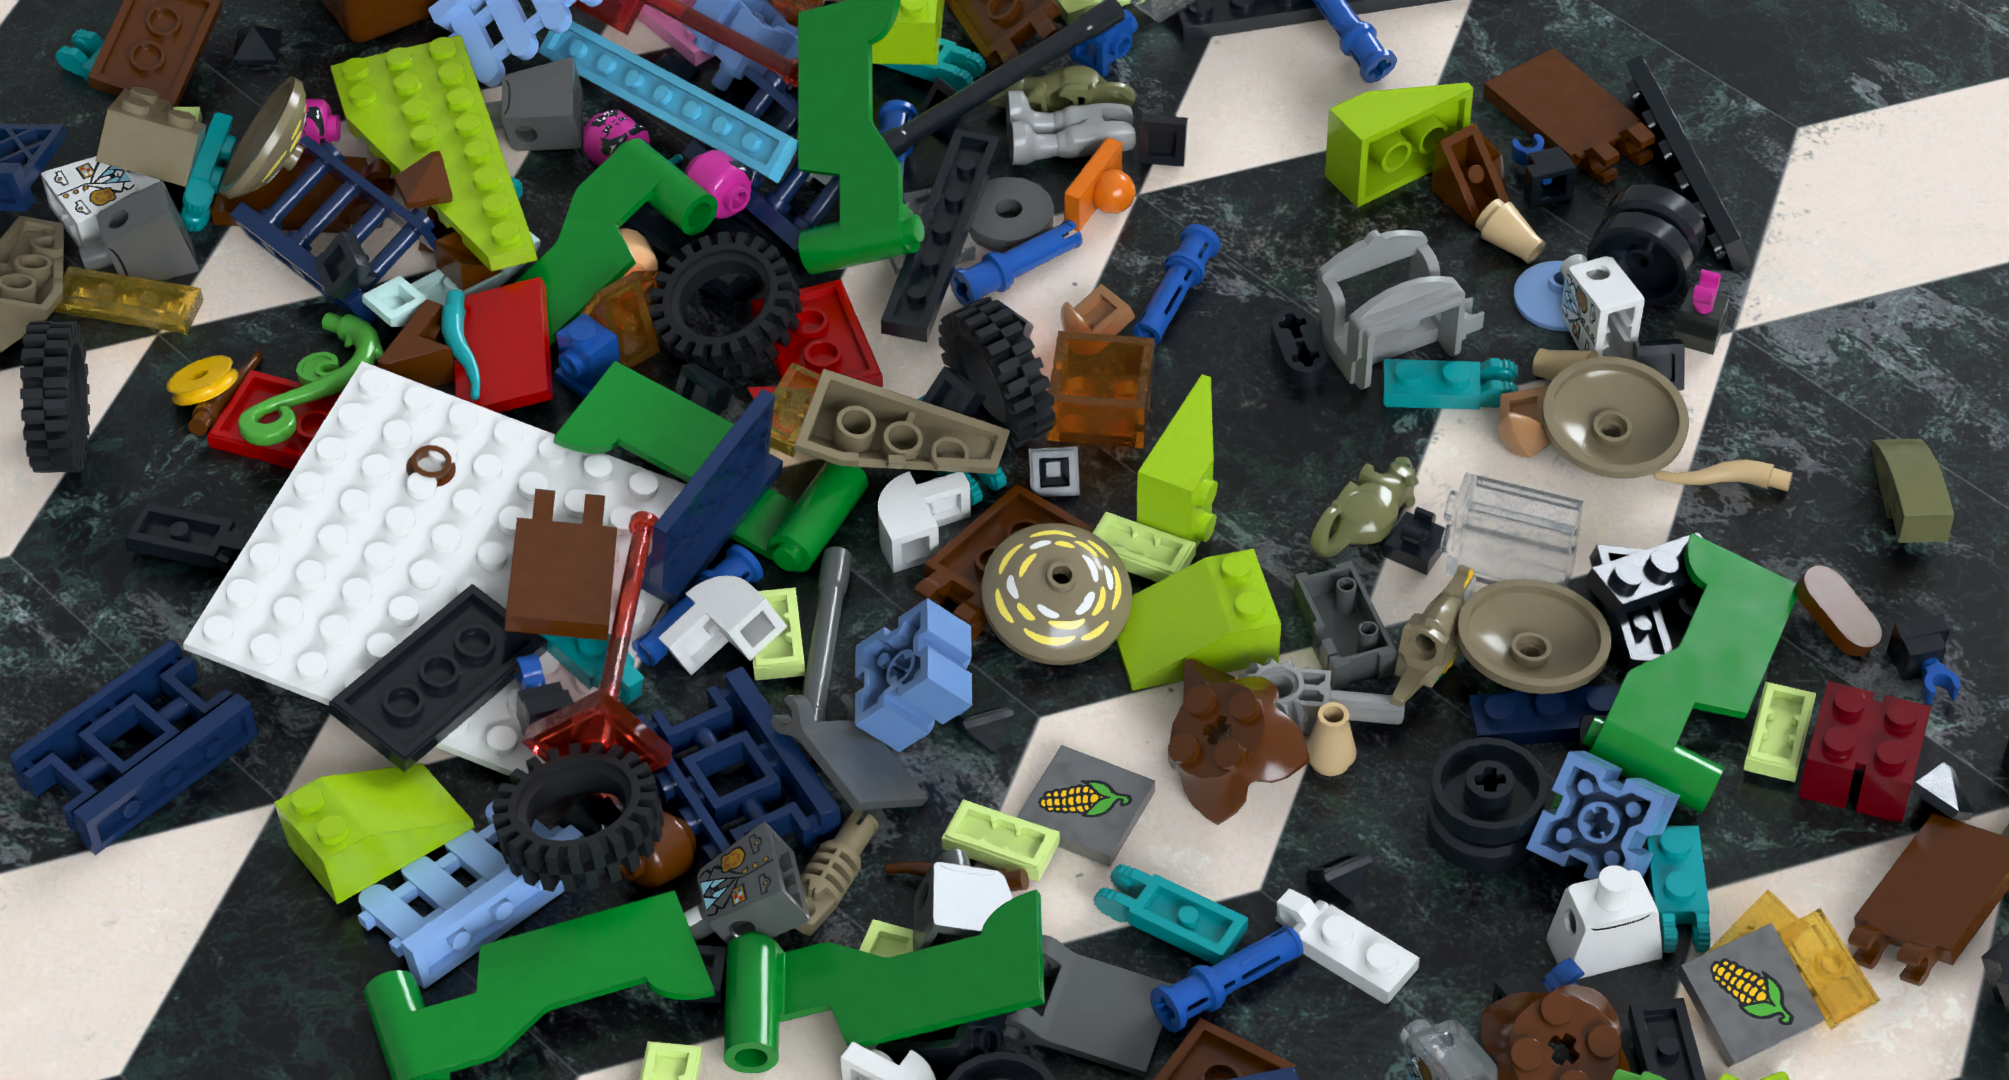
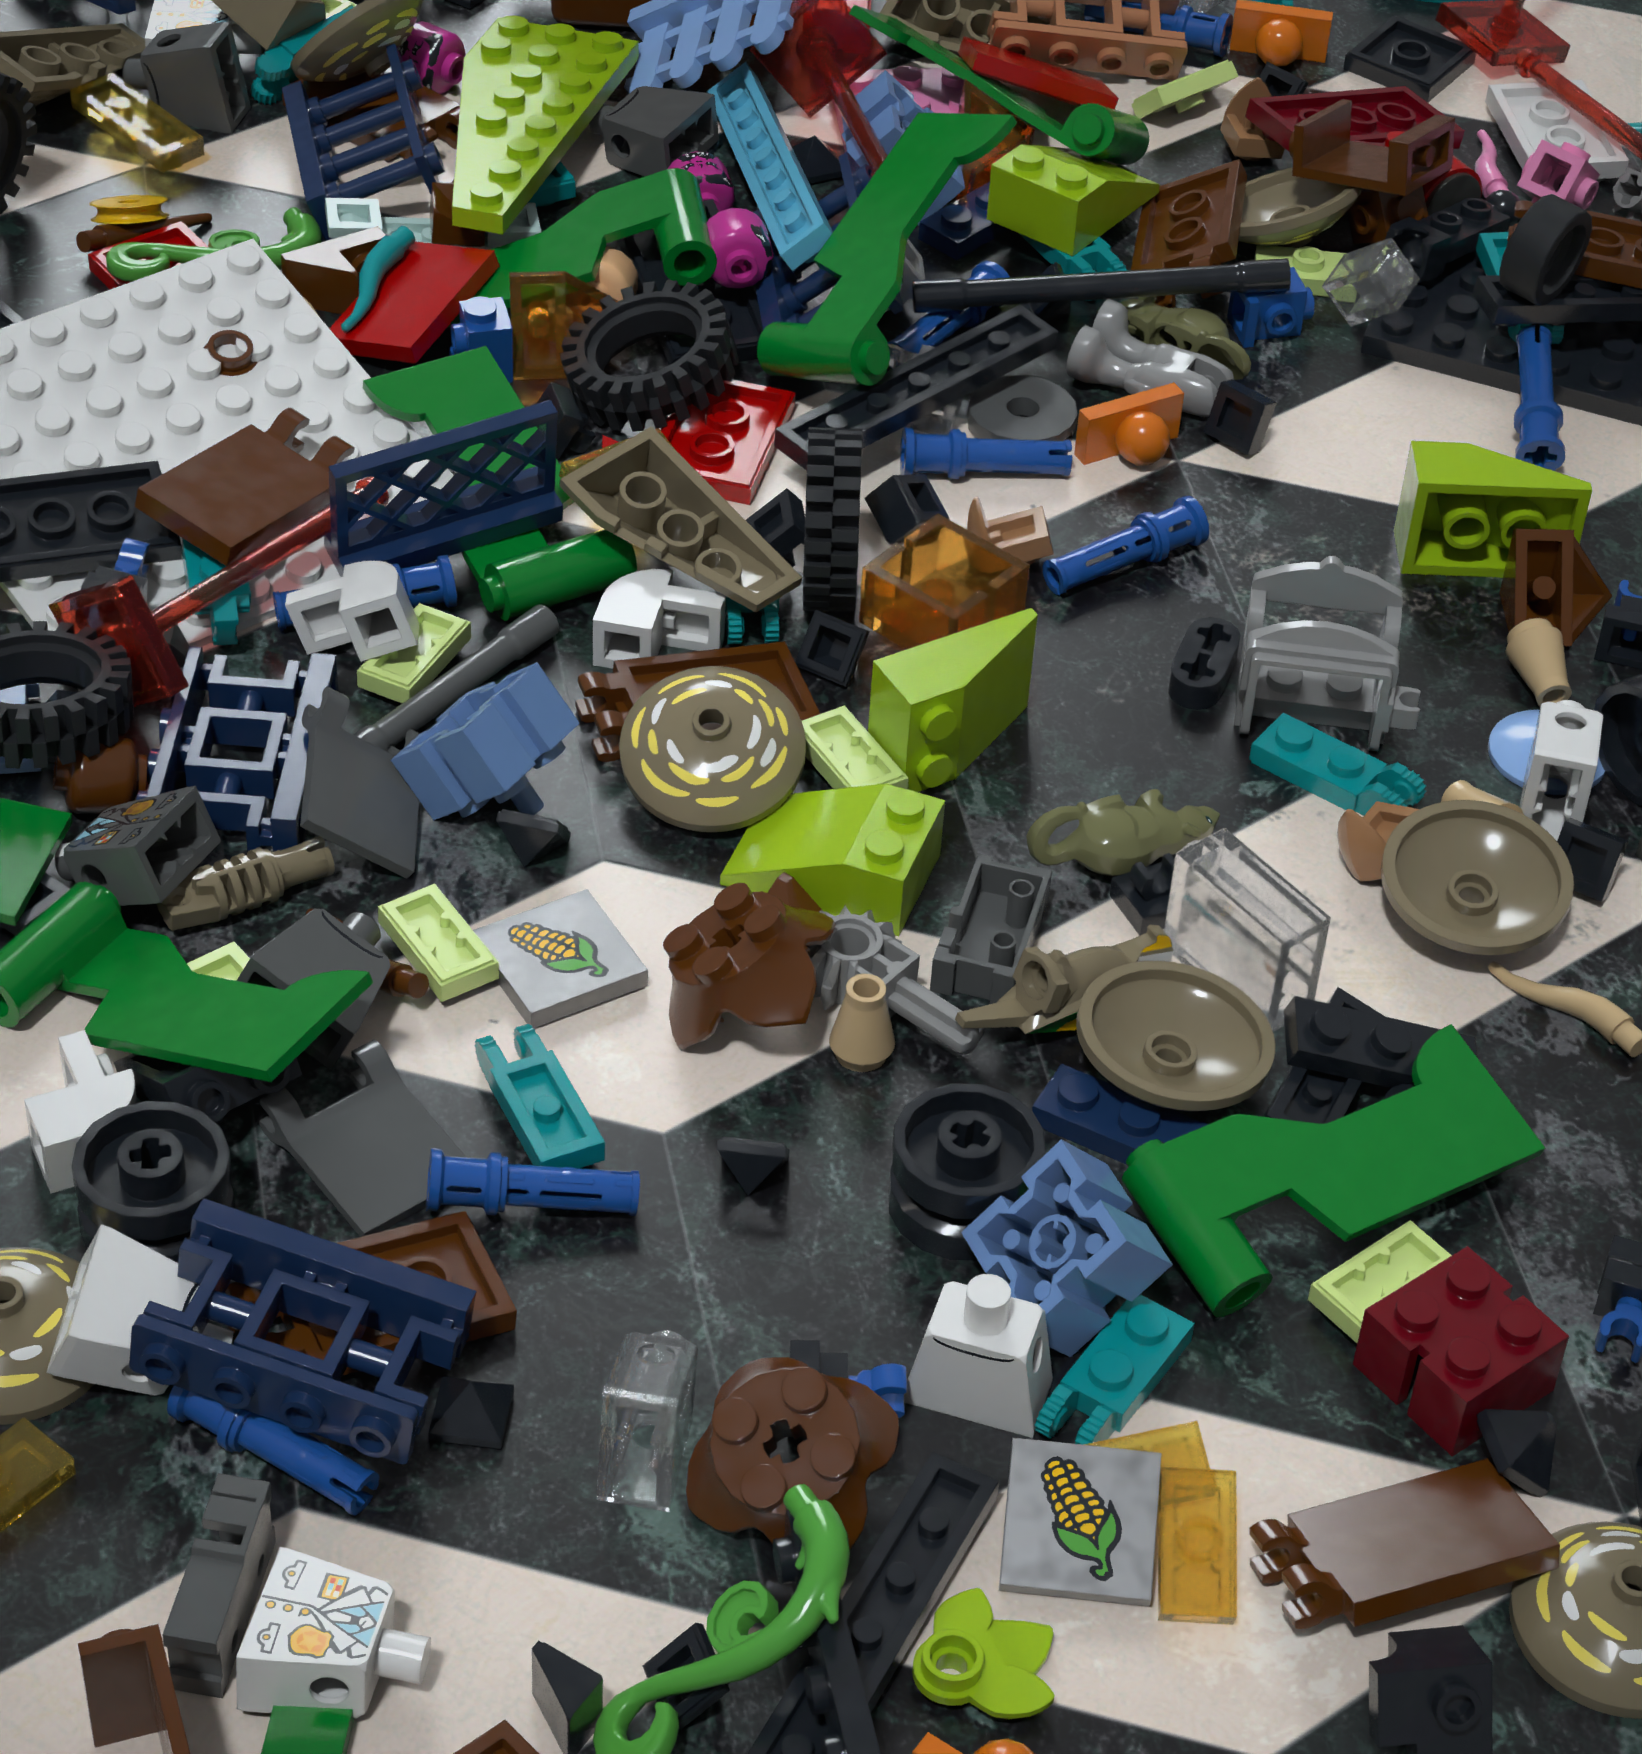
camera: 30 degrees right, 5 degrees down
(345, 266) = (326, 163): black tile -> none
(424, 182) = (459, 124): reddish brown slope -> none
(1347, 946) = (692, 1232): white hinge -> none
(1838, 610) = (1568, 1196): tile -> none

